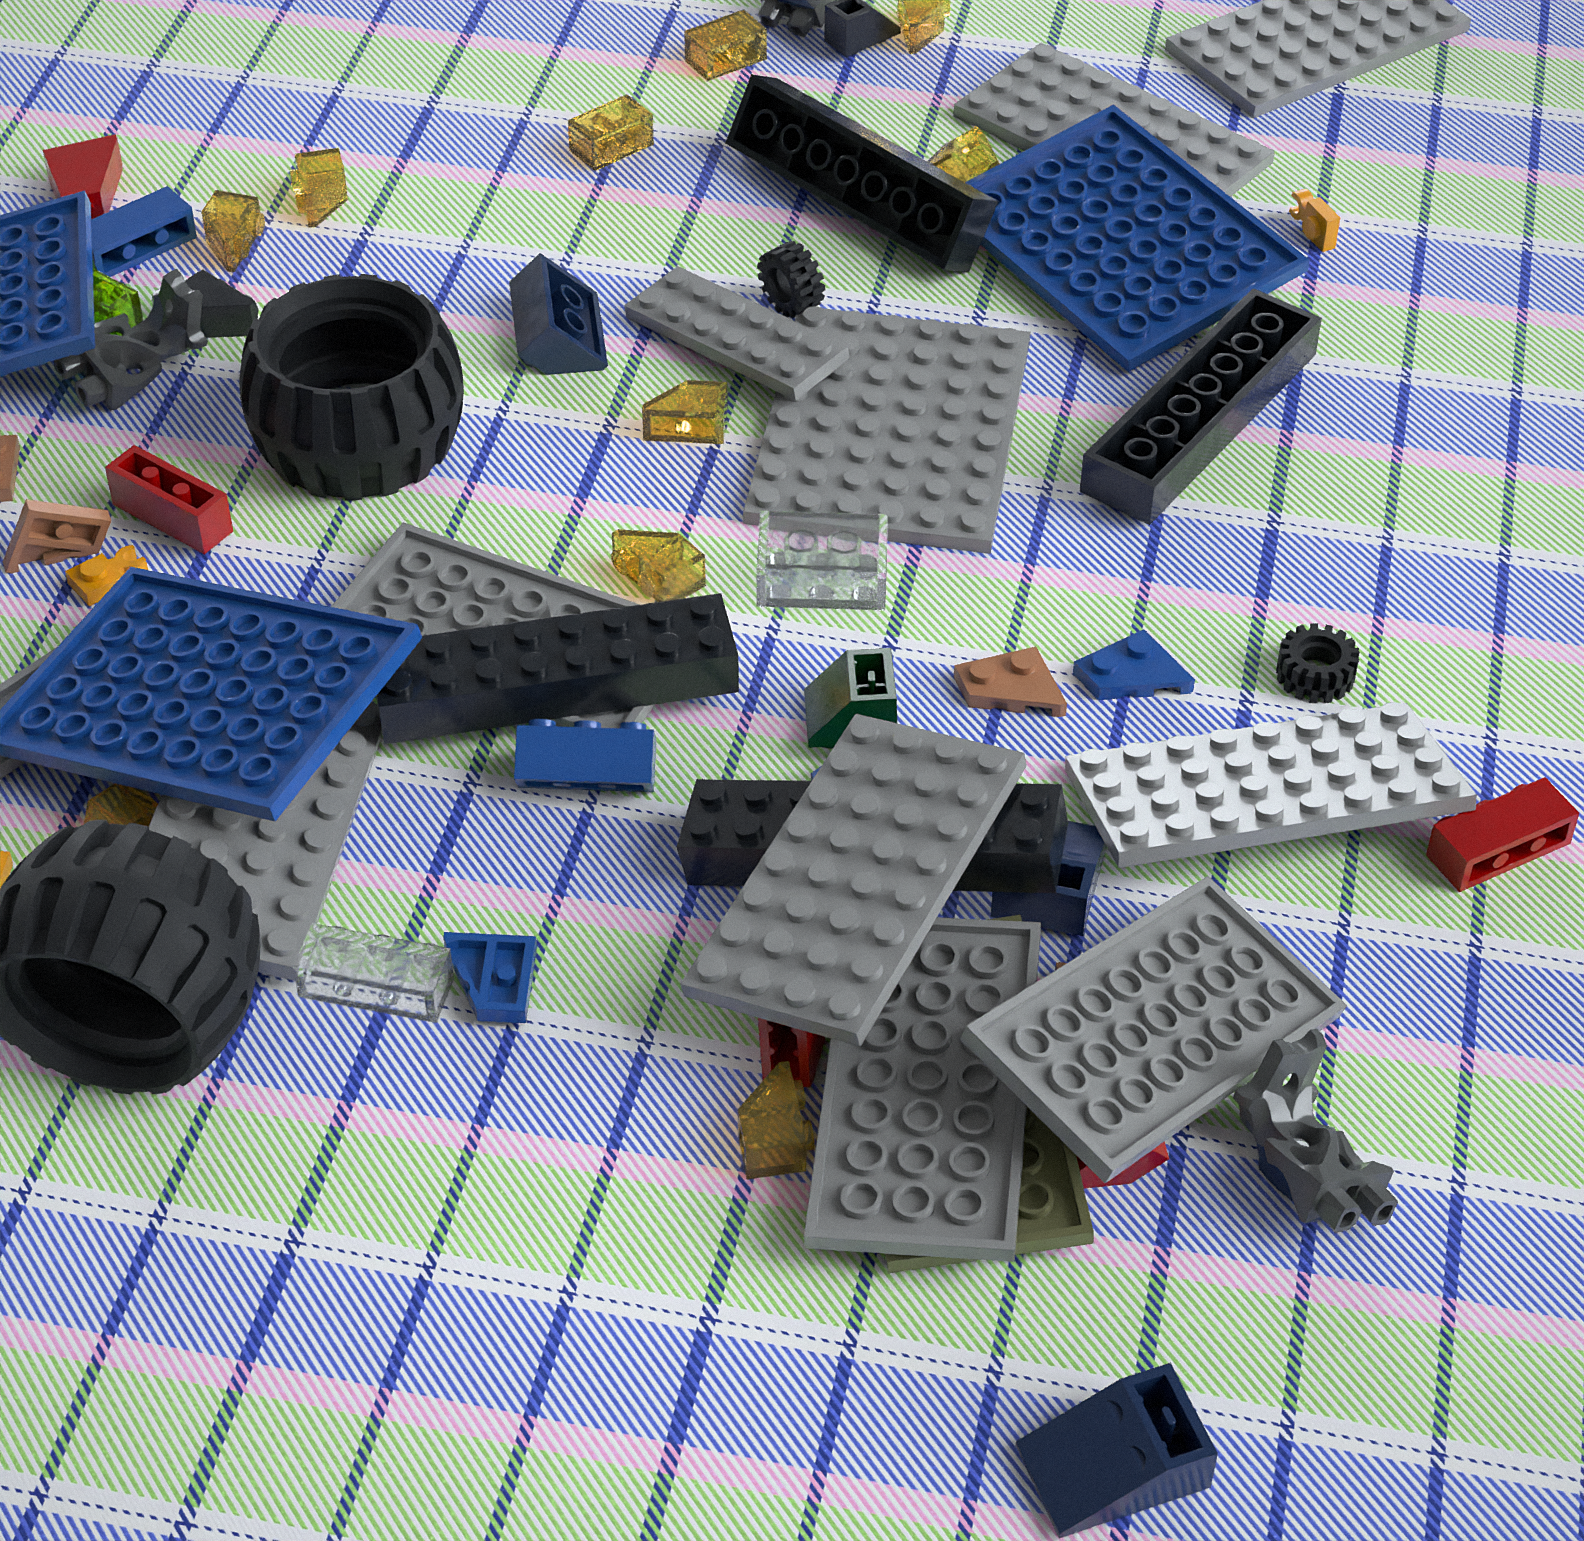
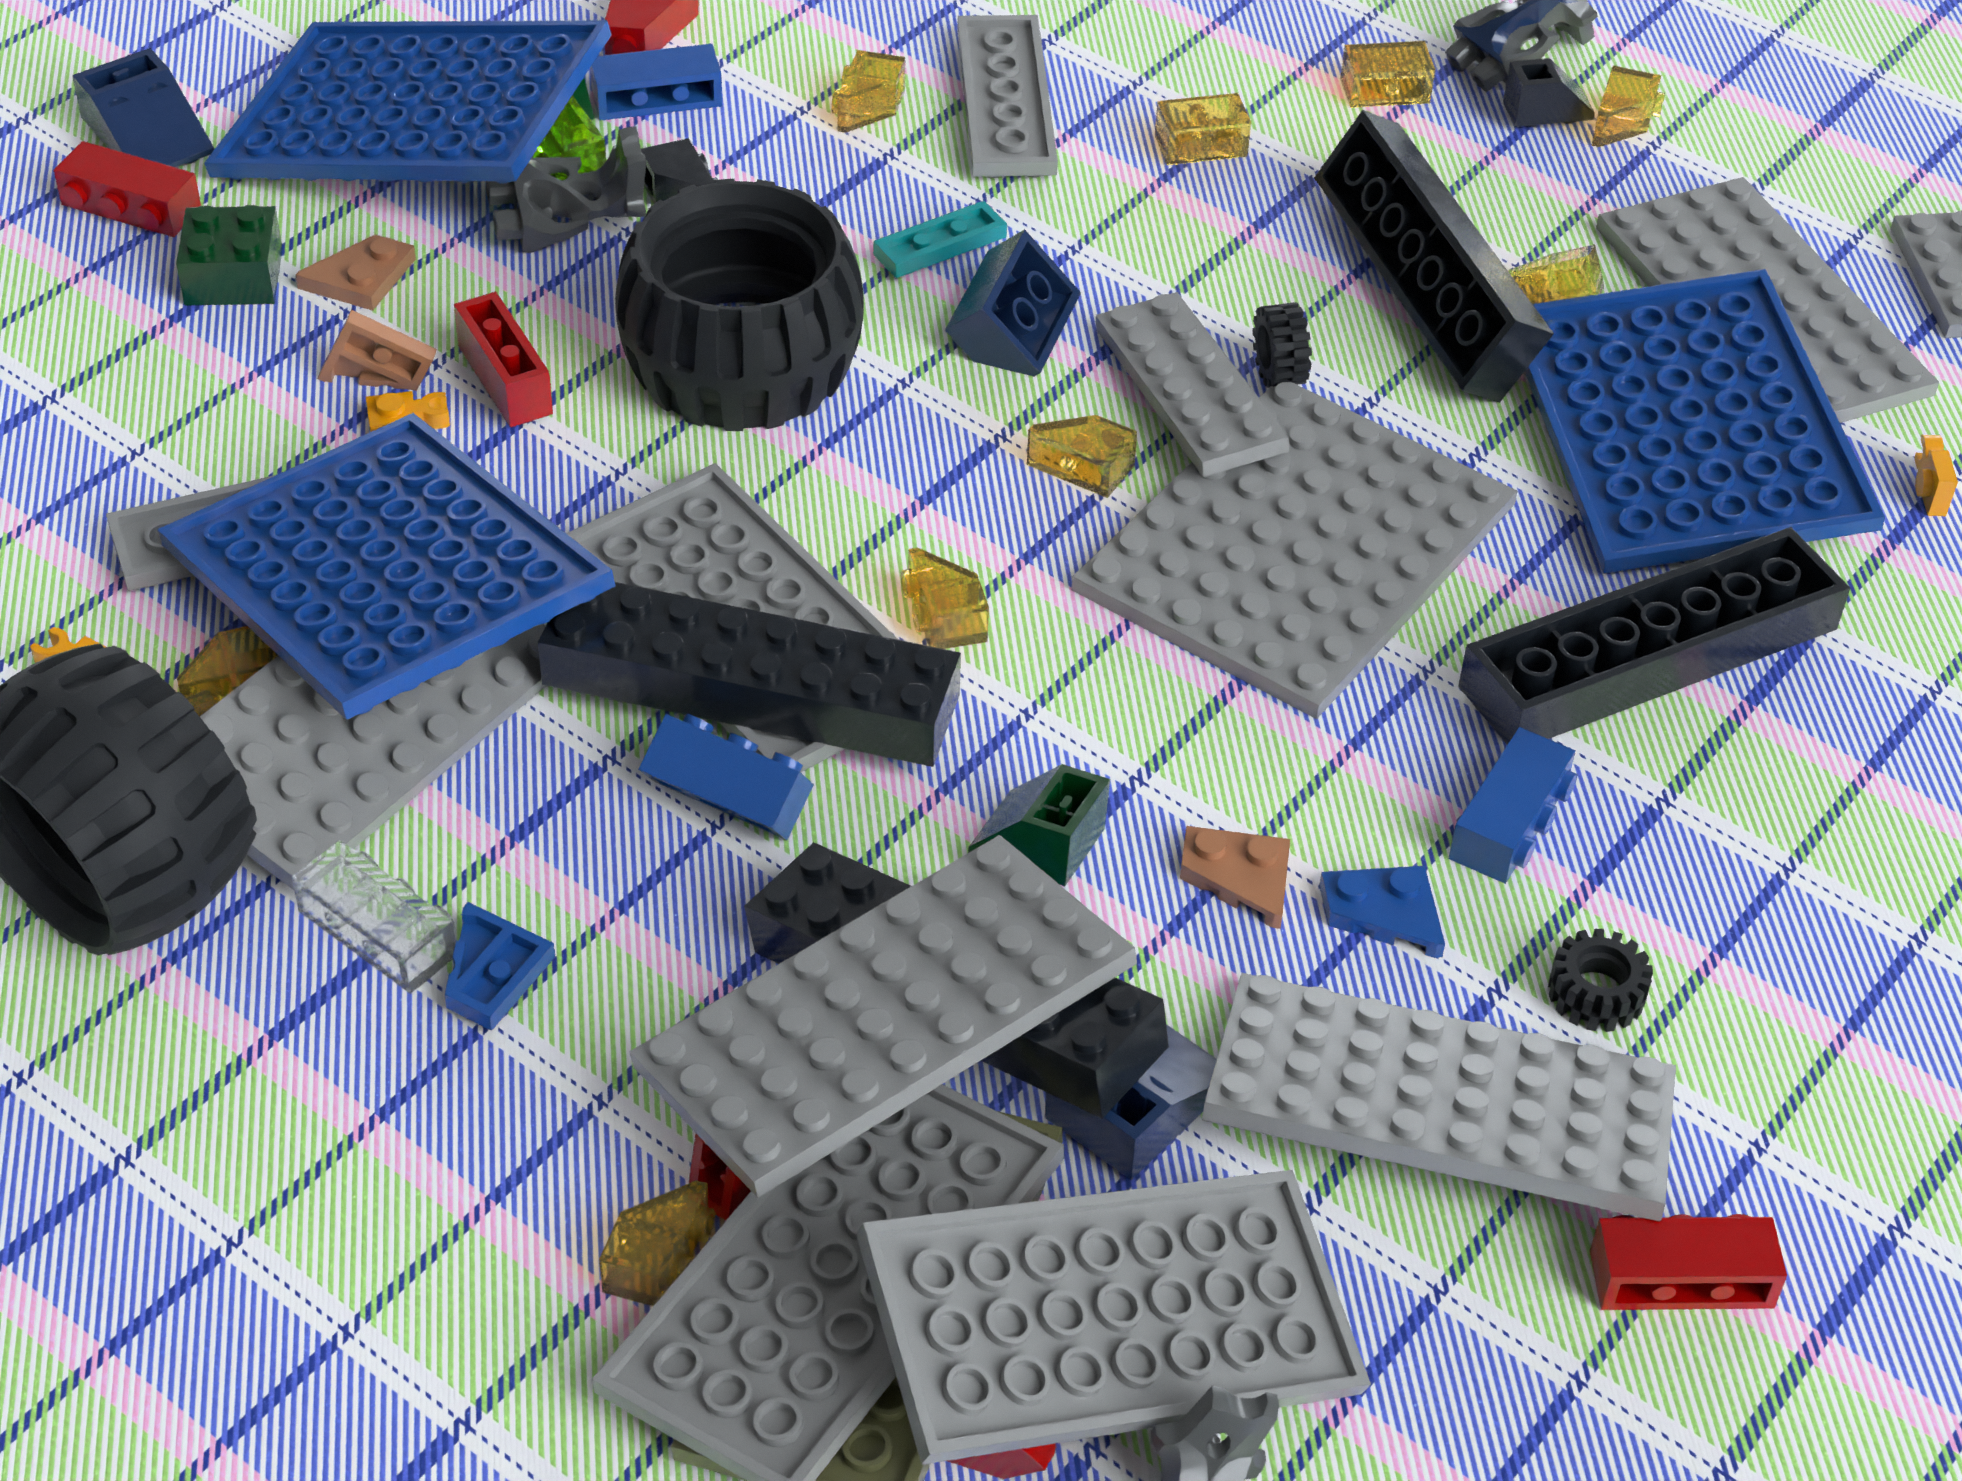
camera: 25 degrees right, 0 degrees up
(232, 226) = (756, 104): clear yellow slope -> none
(434, 155) = (1006, 96): none -> light grey plate
(466, 280) = (939, 239): none -> teal plate
(822, 560) = (1112, 658): clear brick -> none
(1180, 562) = (1513, 806): none -> blue brick

